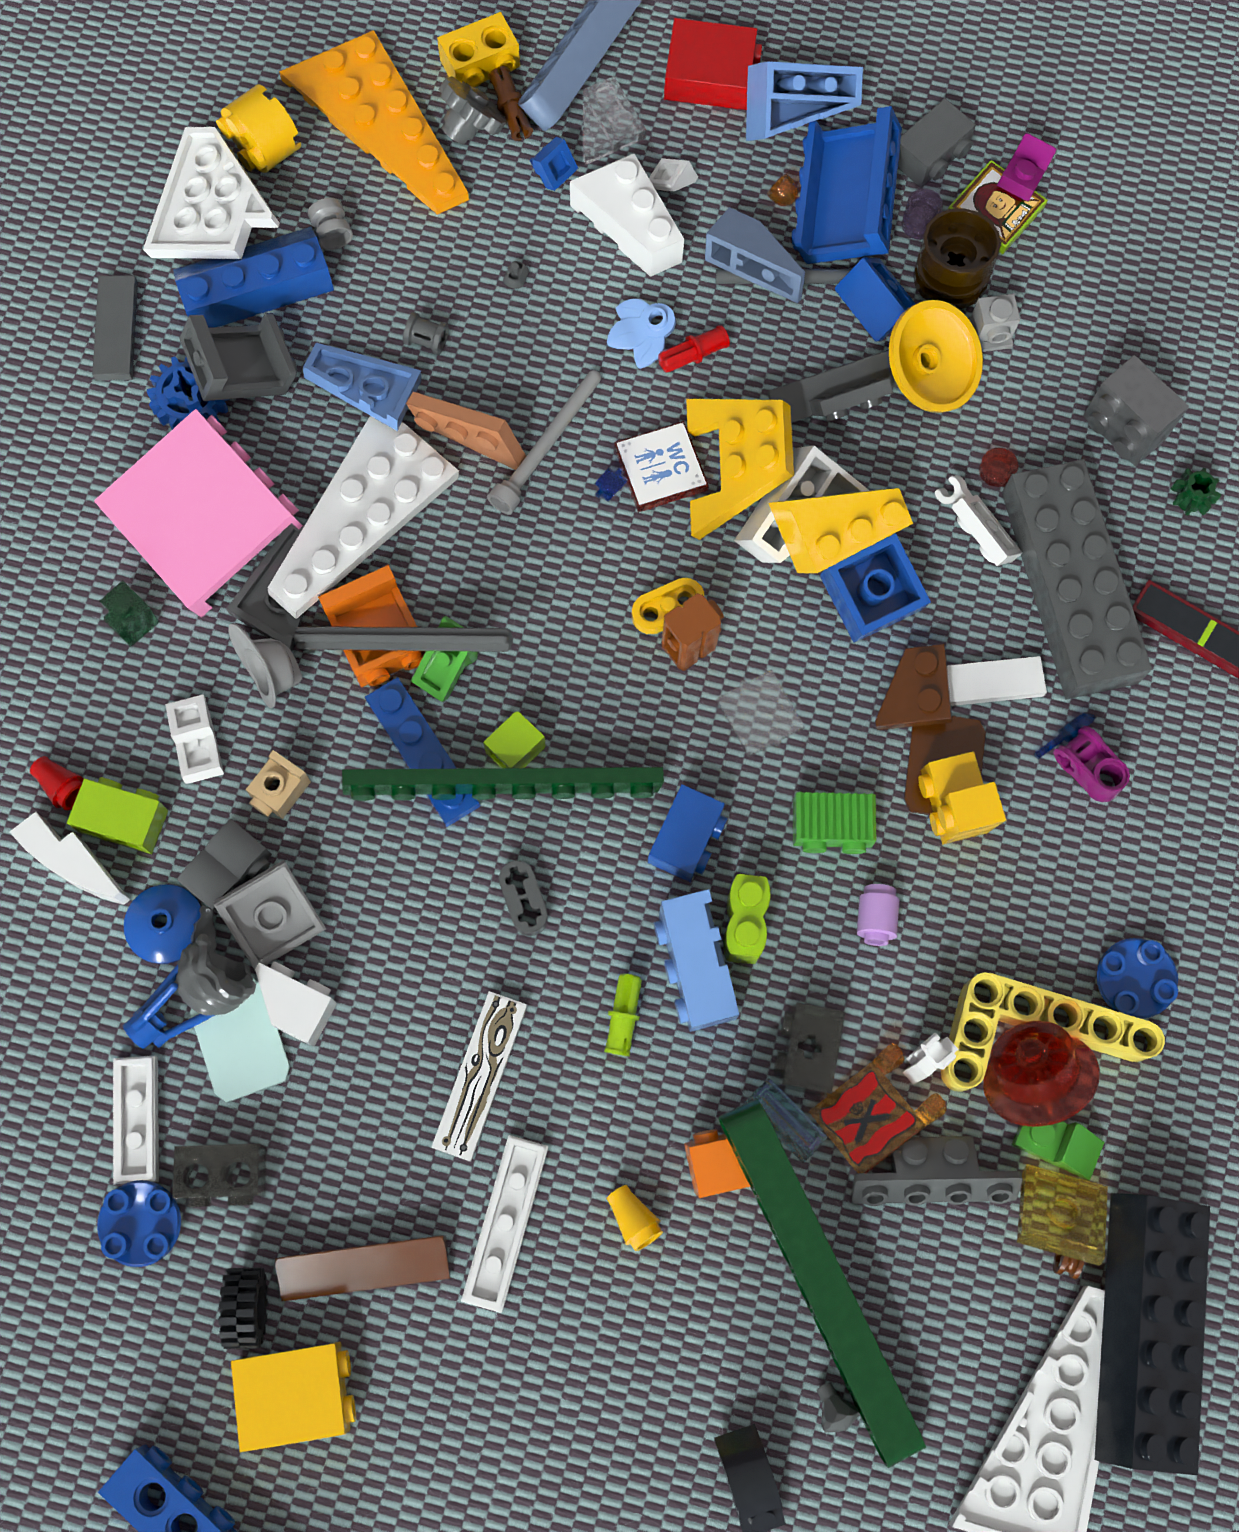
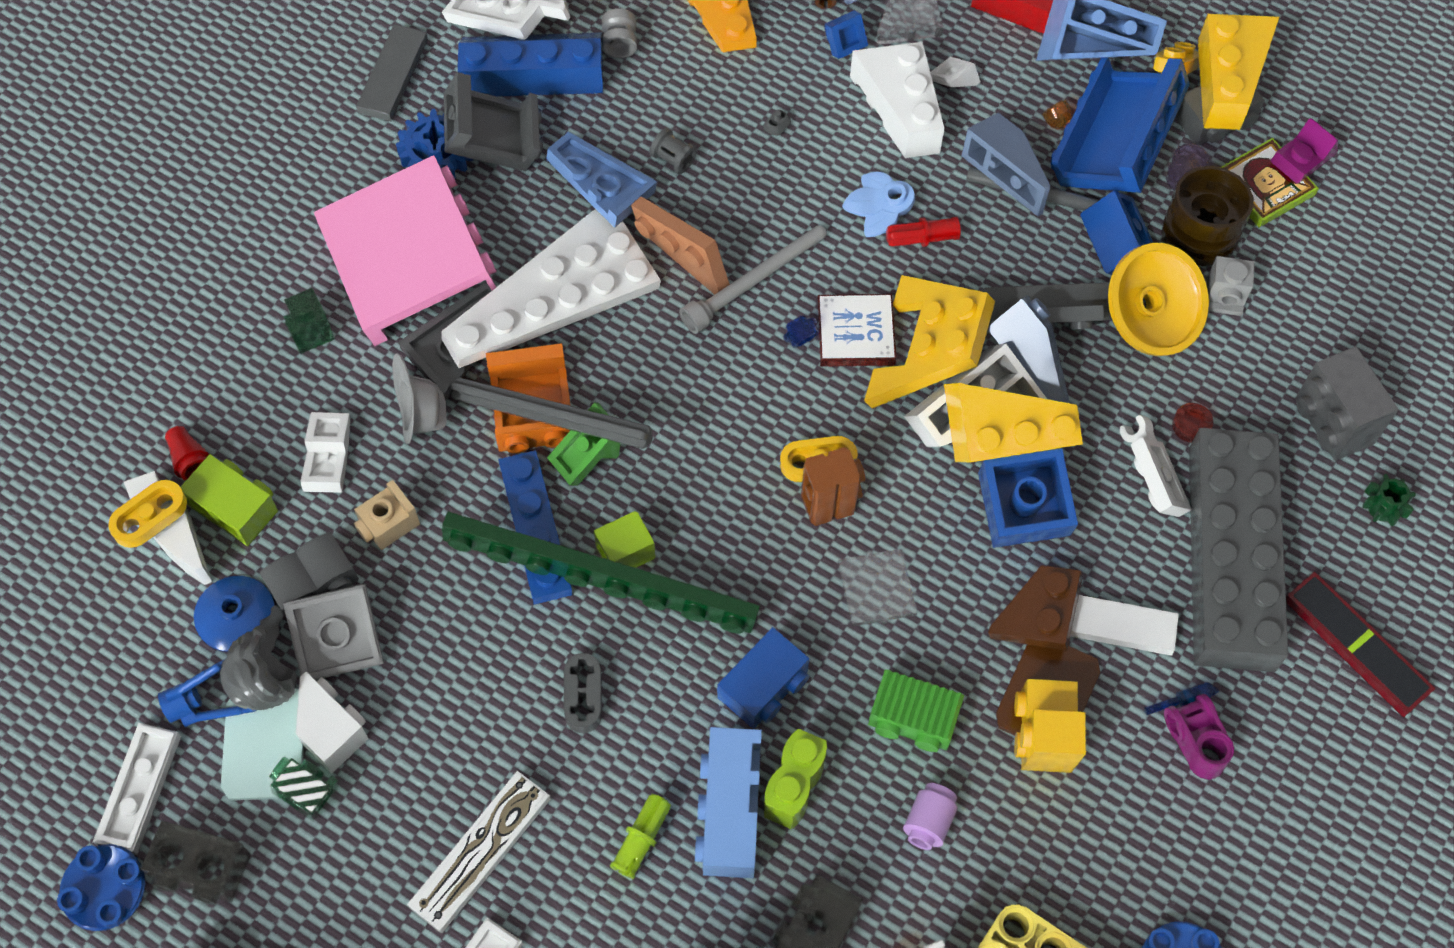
camera: 20 degrees right, 10 degrees down
(45, 856) = (147, 513): none -> yellow plate
(294, 1070) = (302, 786): none -> clear green brick
(830, 429) = (1034, 344): none -> slope
(881, 96) = (1181, 50): none -> yellow plate
(938, 99) = (1230, 65): none -> yellow wedge

